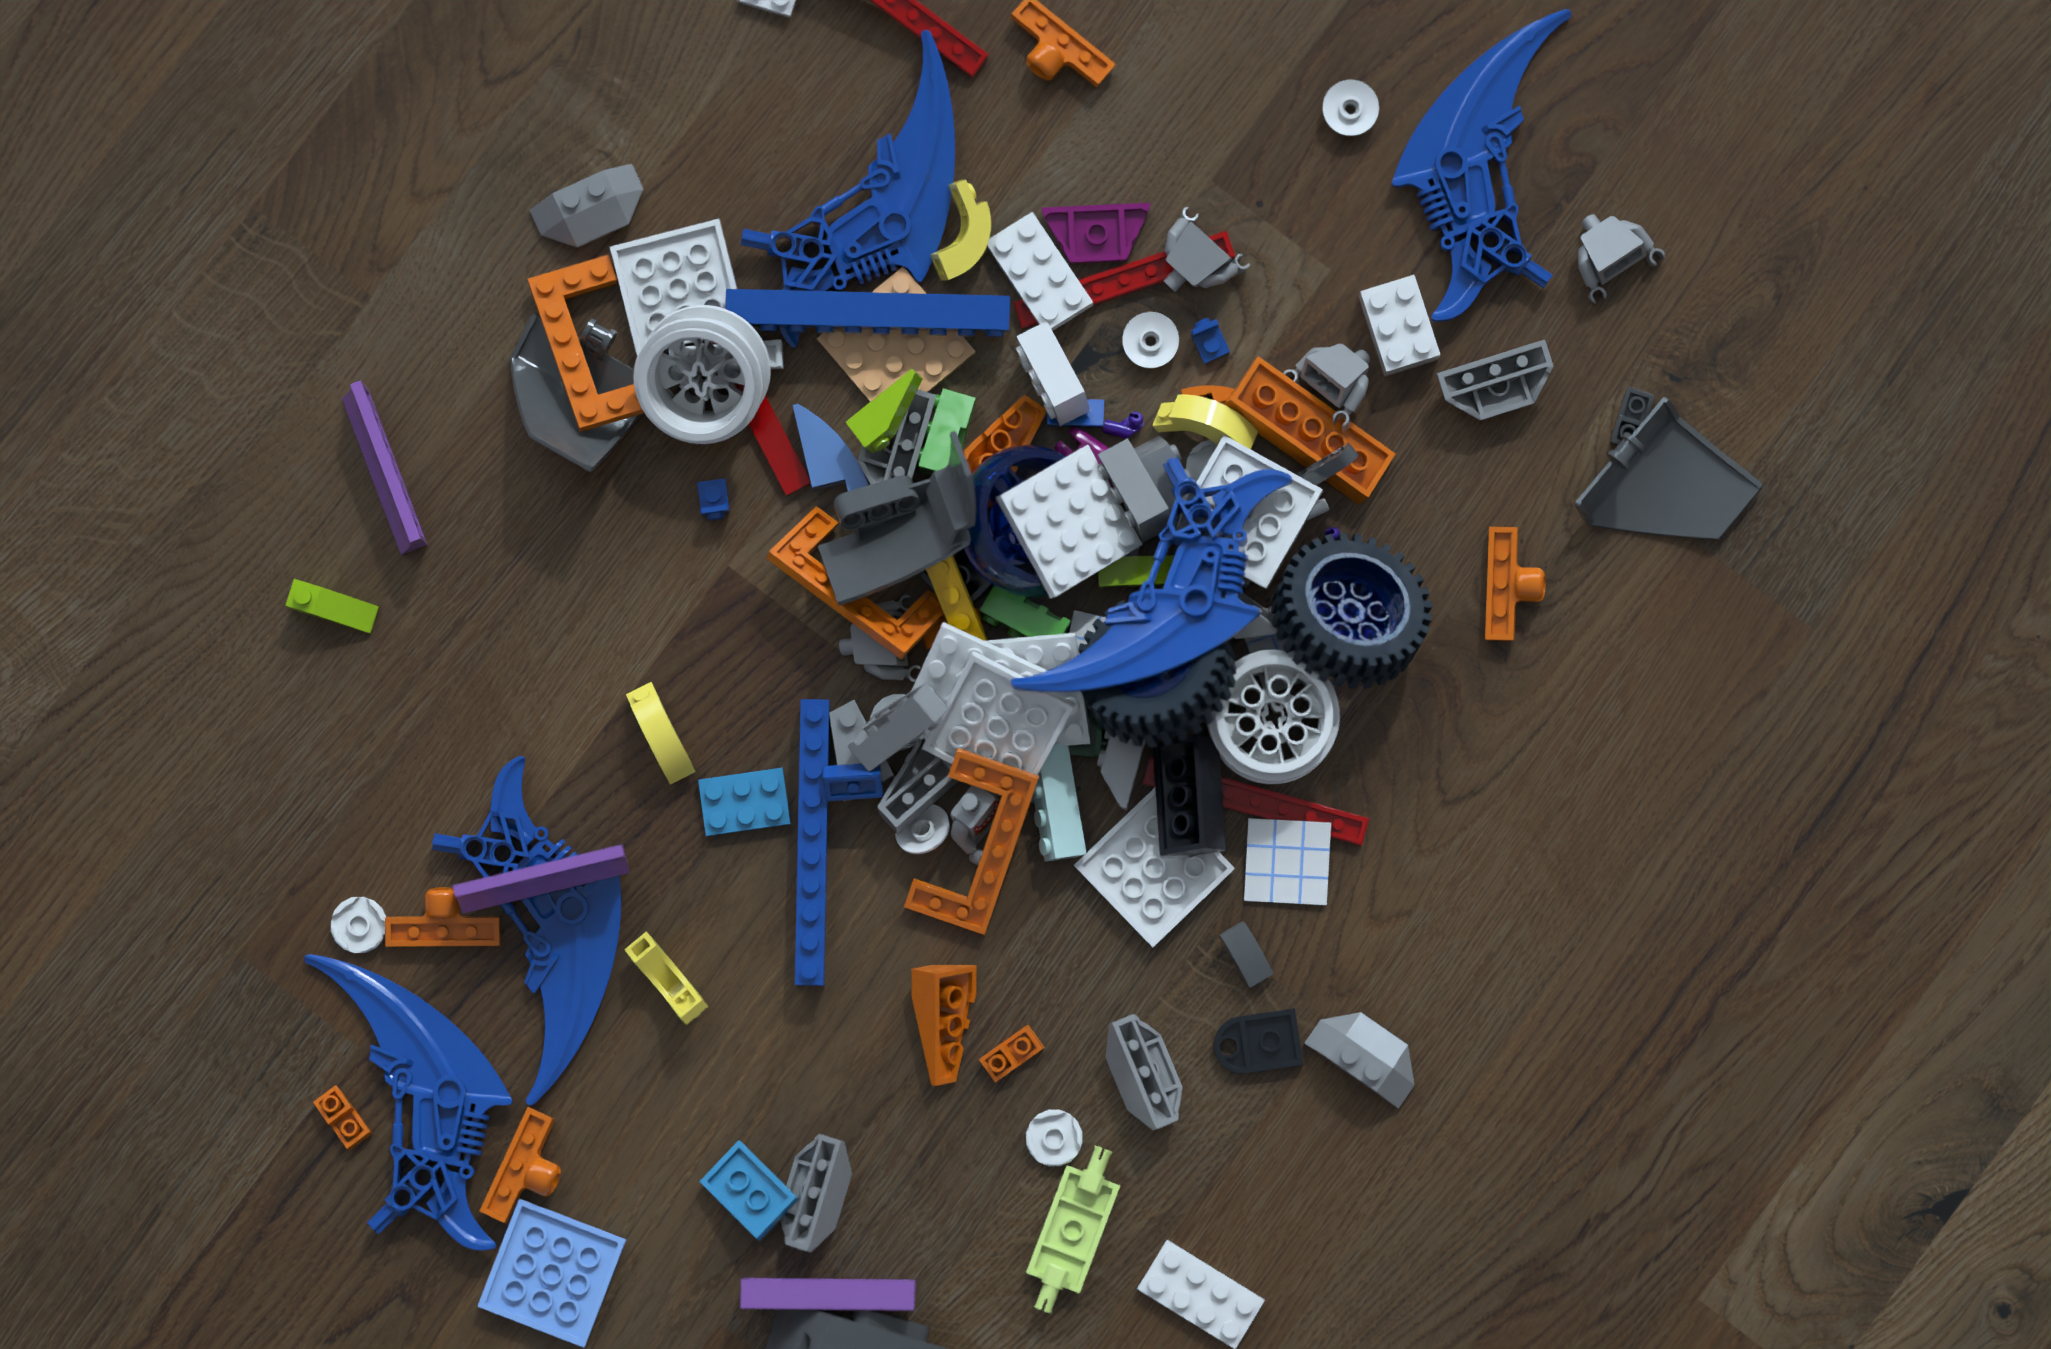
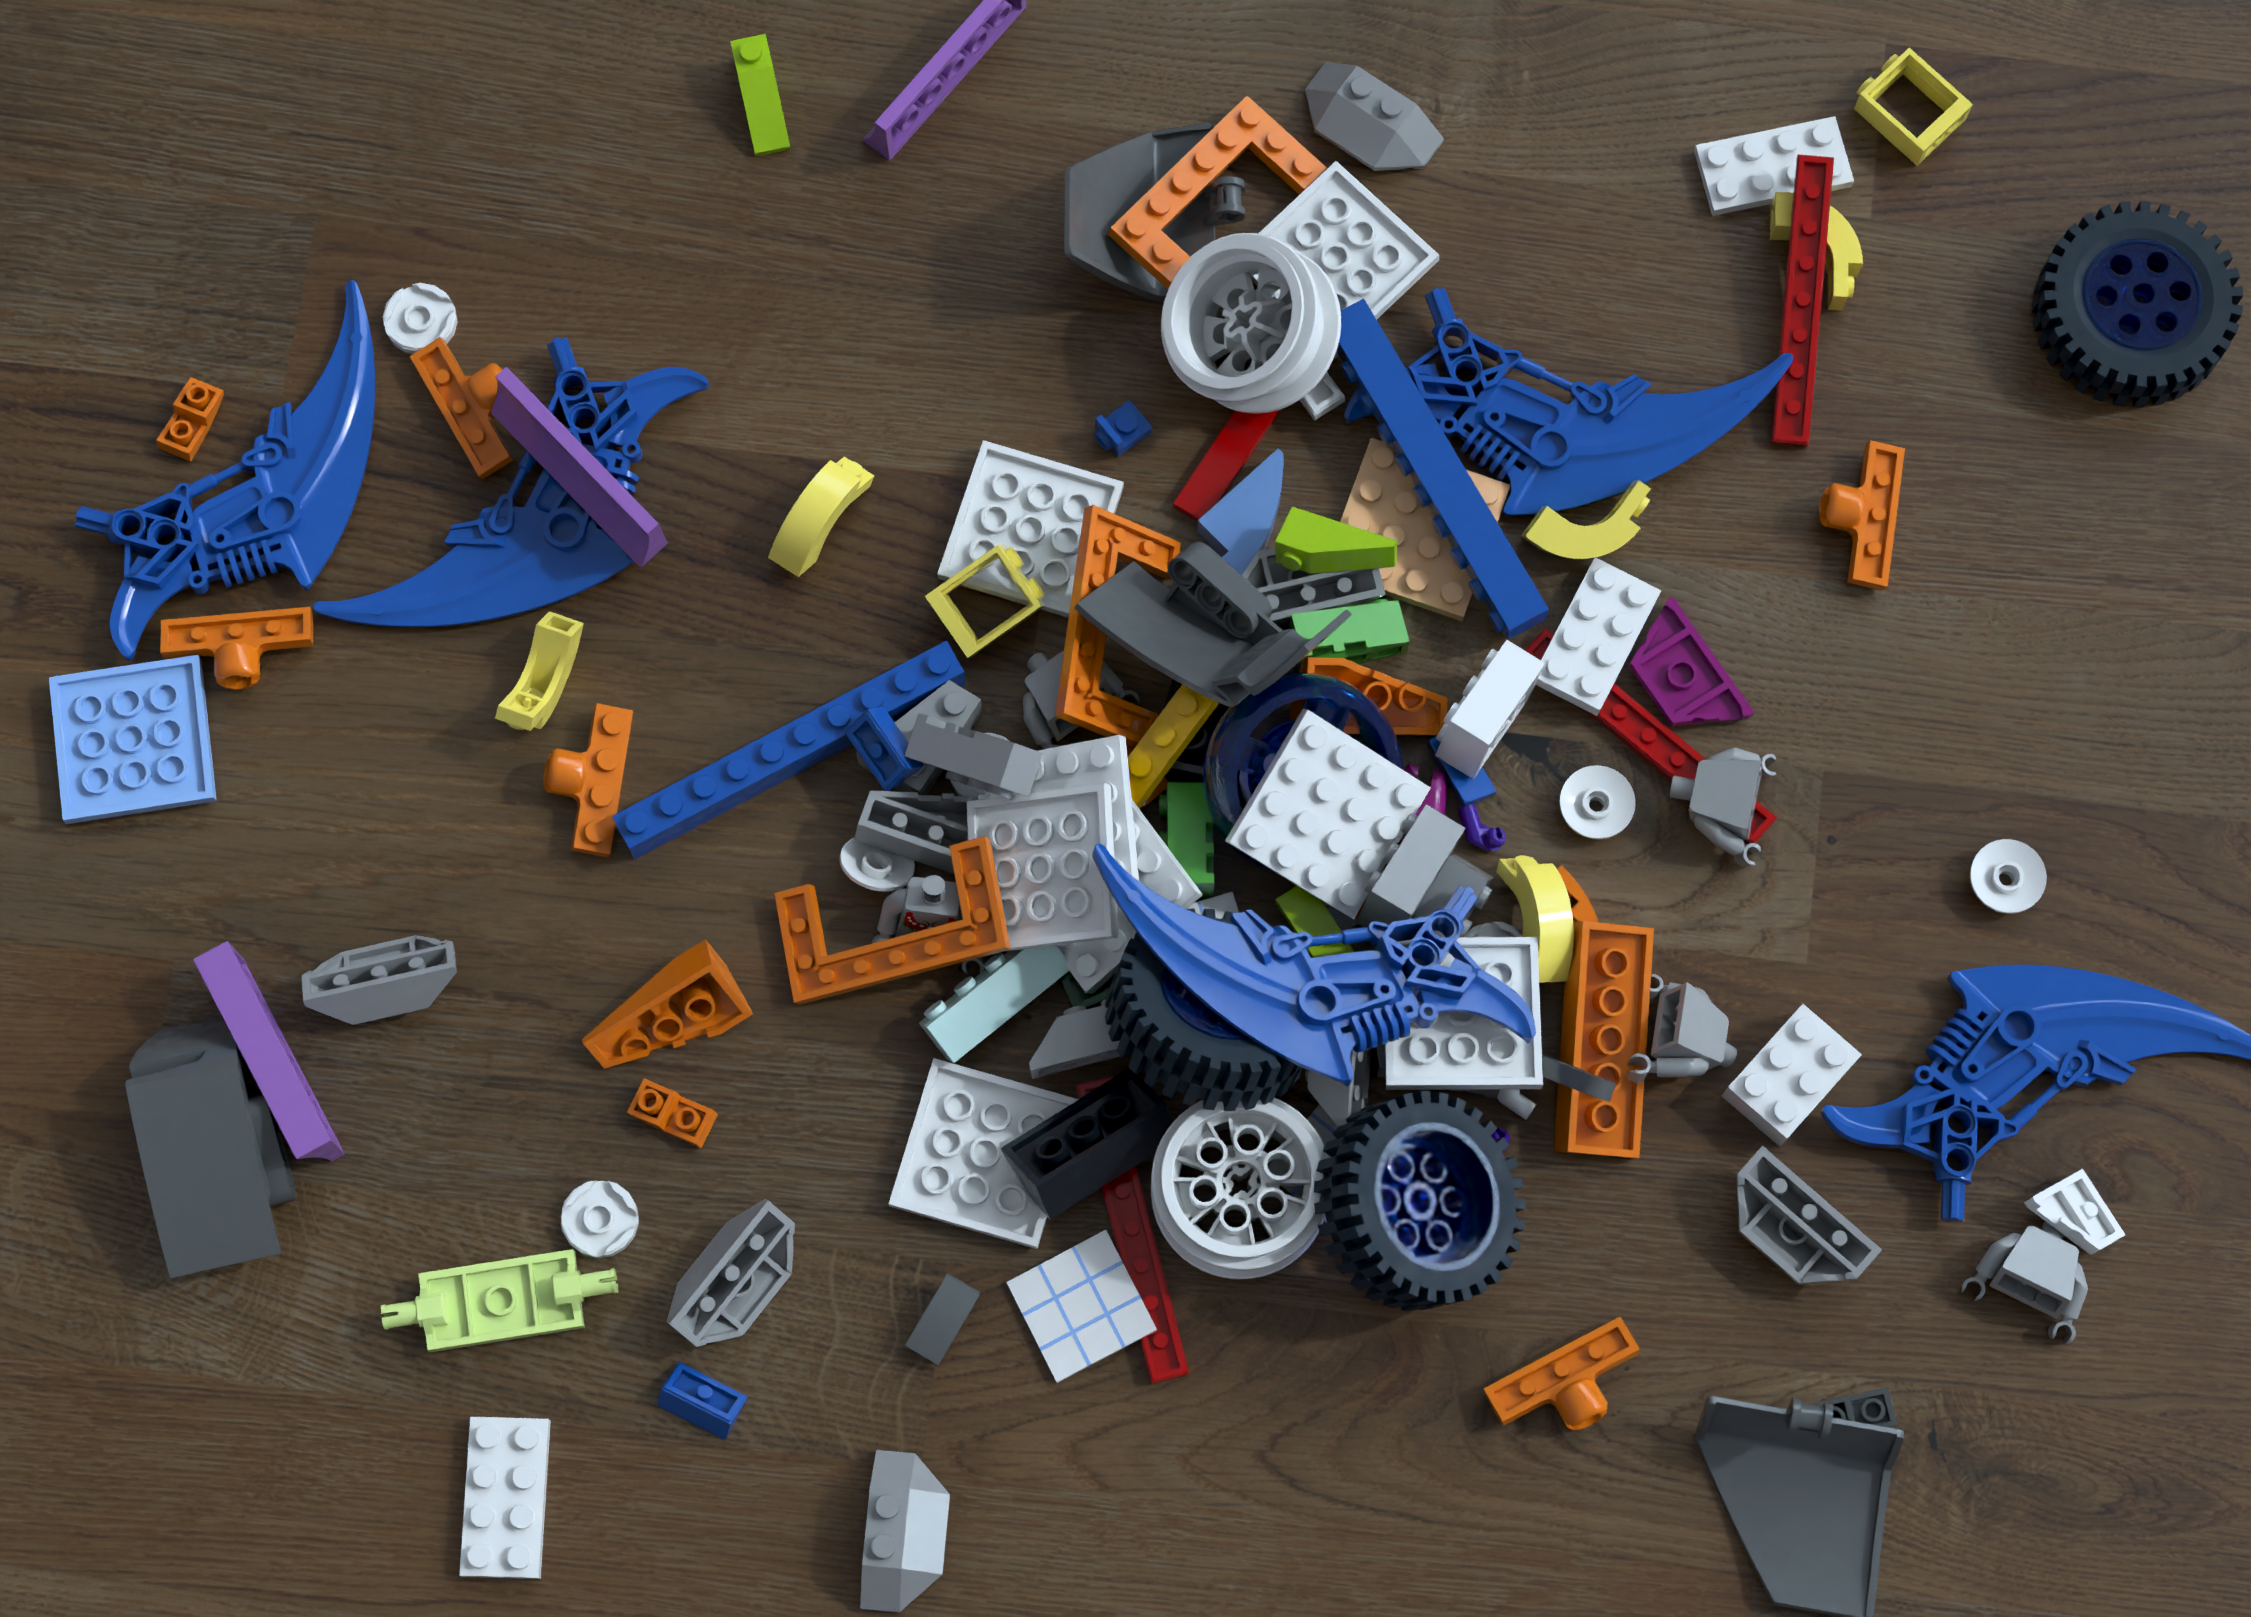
camera: 55 degrees right, 10 degrees down
(744, 802) = (796, 652): dark azure plate -> none
(747, 601) = (1033, 509): none -> white plate
(749, 1190) = (344, 901): dark azure plate -> none
(756, 982) = (593, 778): none -> orange plate
(787, 685) = (955, 621): none -> light yellow window
(1209, 340) = (1638, 869): blue bracket -> none
(1209, 1136) = (701, 1400): none -> blue slope
(1262, 1042) = (849, 1398): black tile -> none
(1588, 200) = (2077, 1212): none -> white wing

